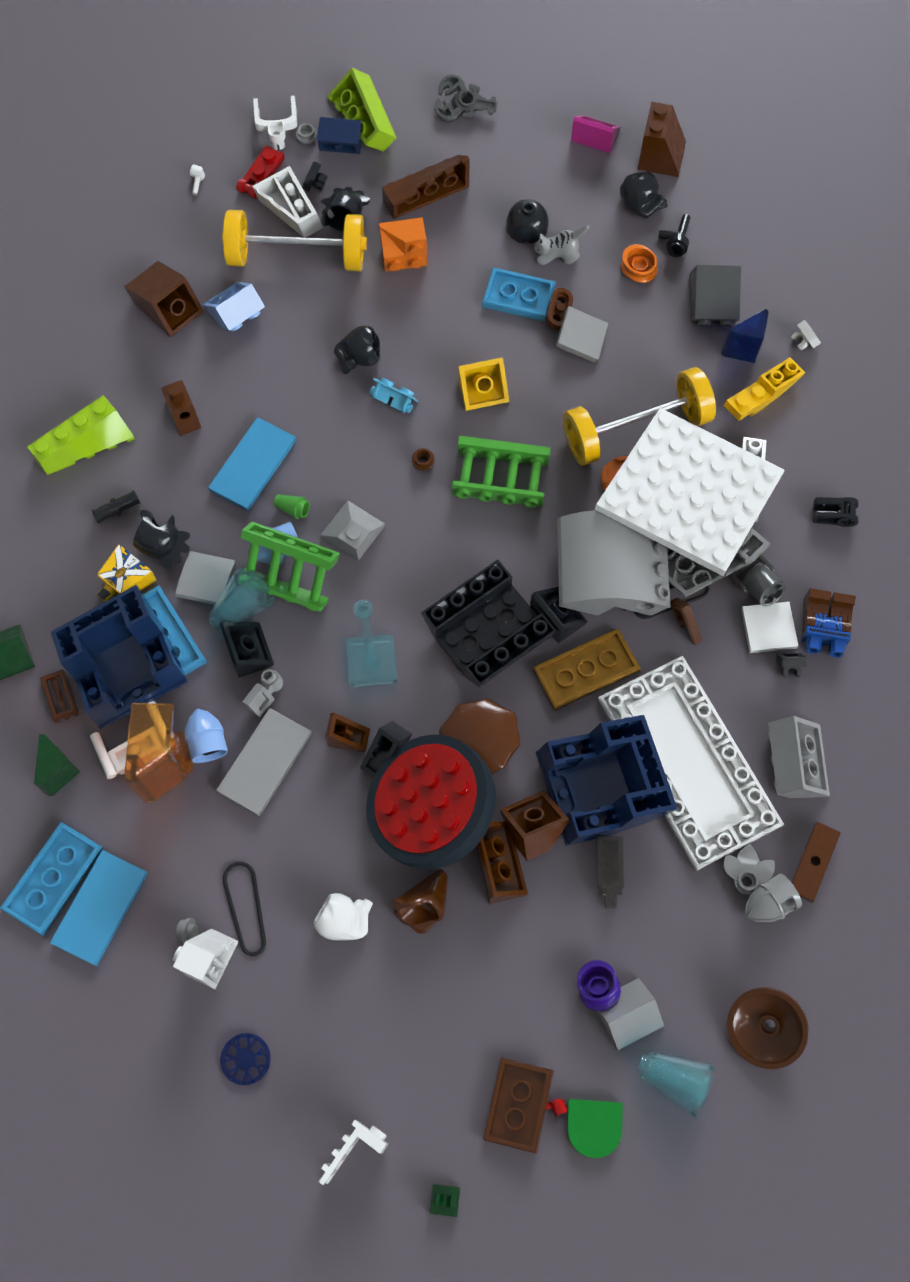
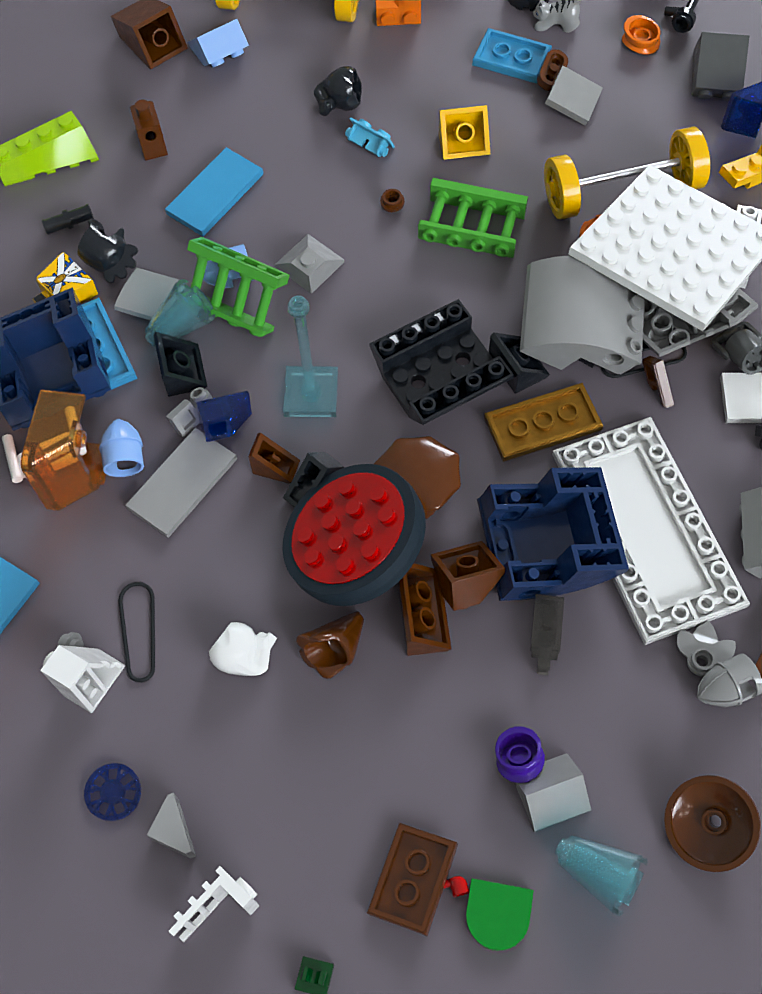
camera: 10 degrees right, 5 degrees down
(293, 505) = (250, 233): bright green cone -> none
(294, 695) = (223, 415): none -> clear blue slope
(303, 1086) = (171, 828): none -> light grey slope

